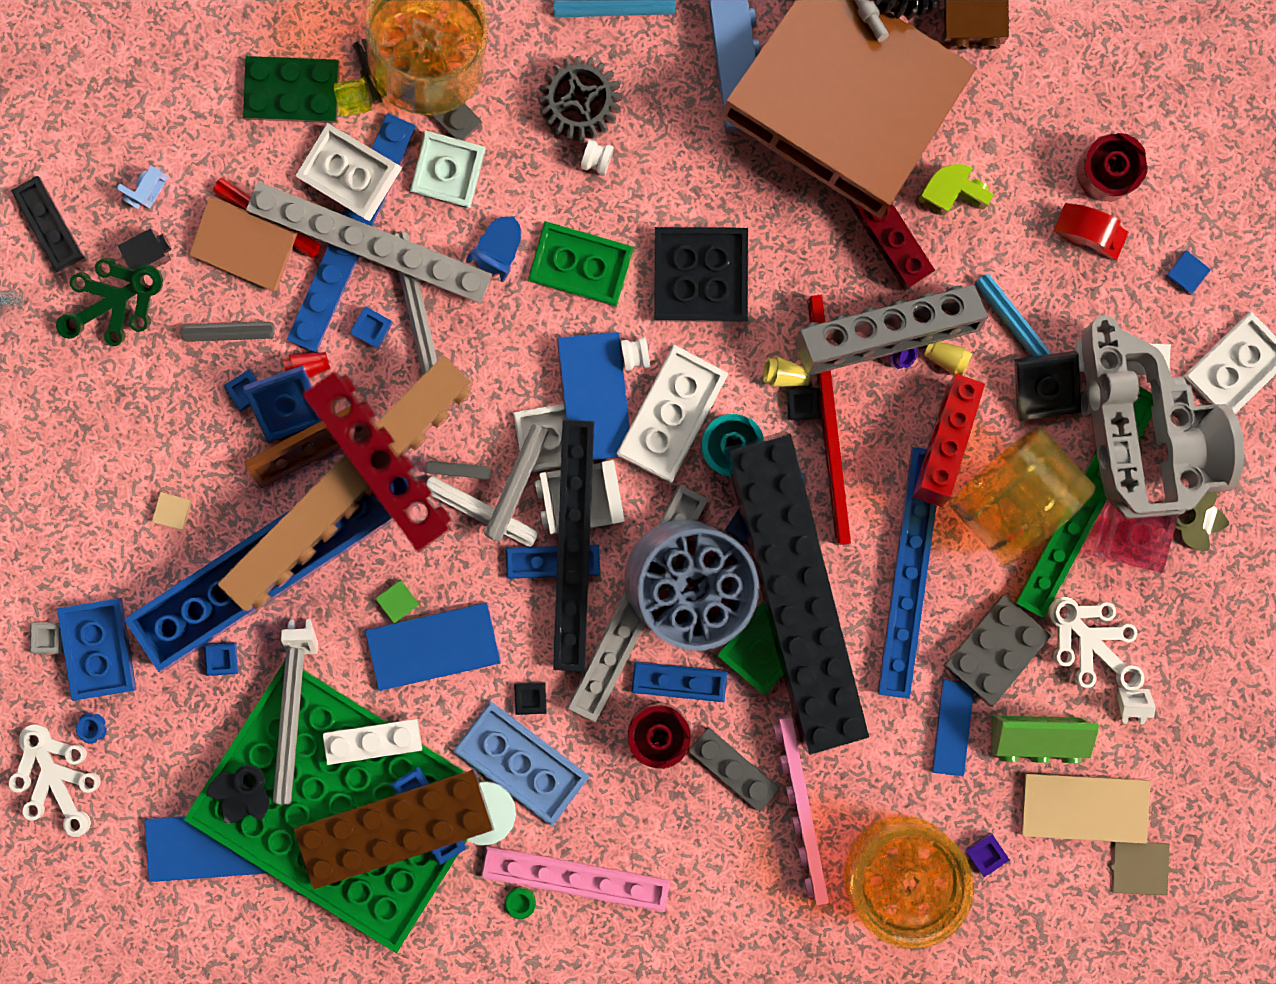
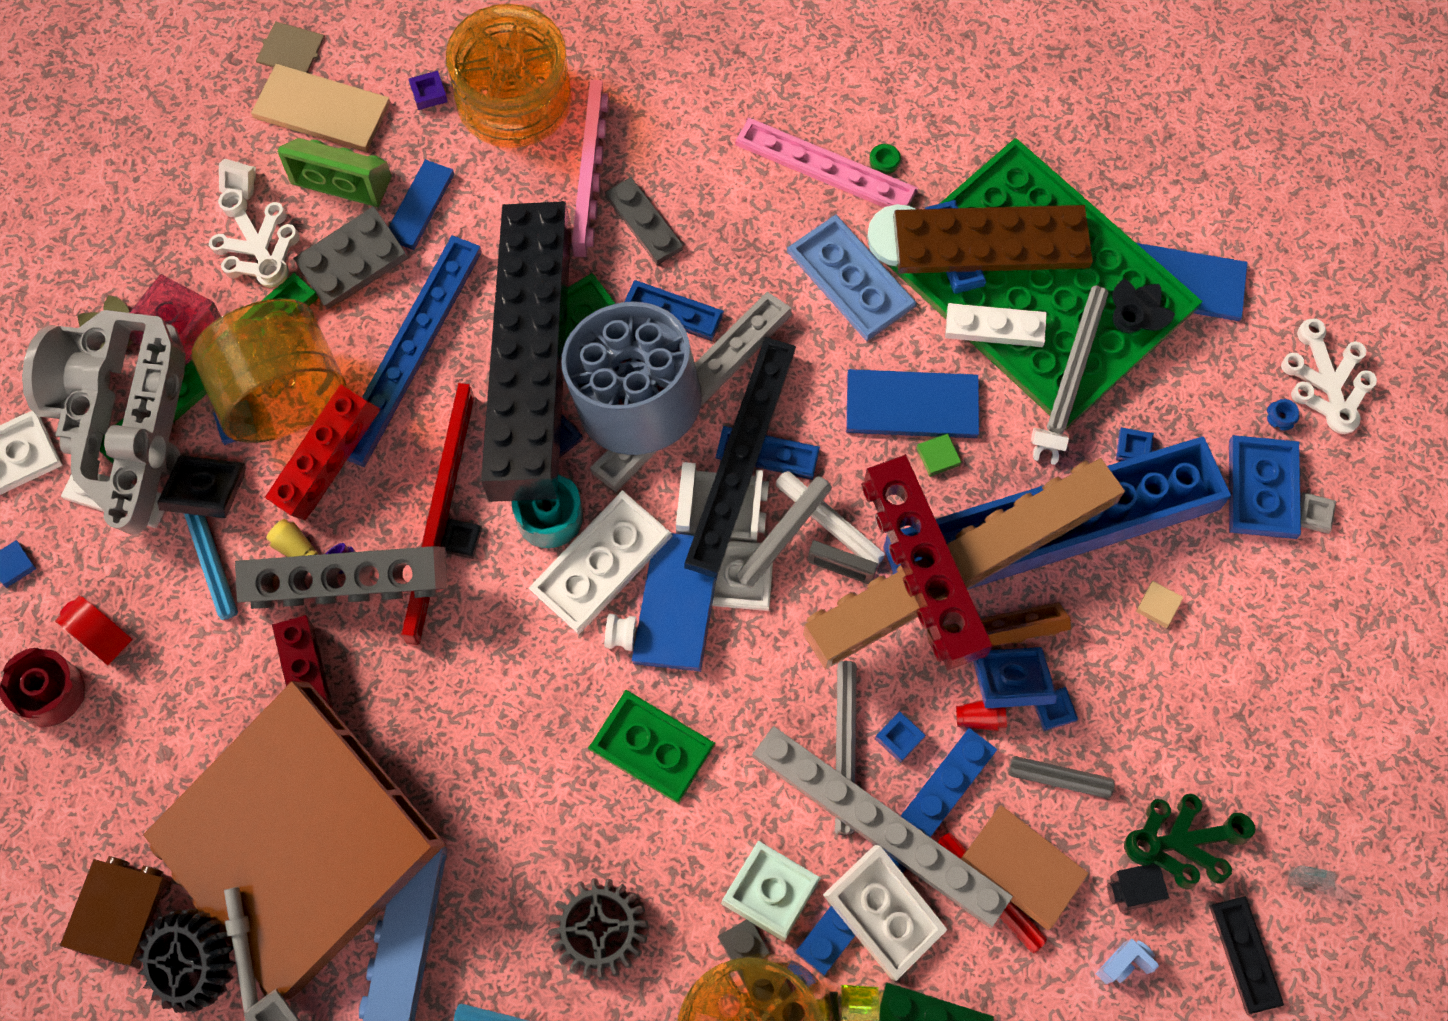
camera: 165 degrees left, 20 degrees down
(497, 247) = (738, 785): blue piece -> none
(530, 698) = (826, 332): black tile -> none
(597, 157) = (598, 855): white wheel -> none
(653, 752) = (707, 261): dark red brick -> none
(701, 274) = (524, 698): black plate -> none
(784, 373) = (470, 572): light yellow cone -> none
(953, 182) = (220, 720): lime brick -> none

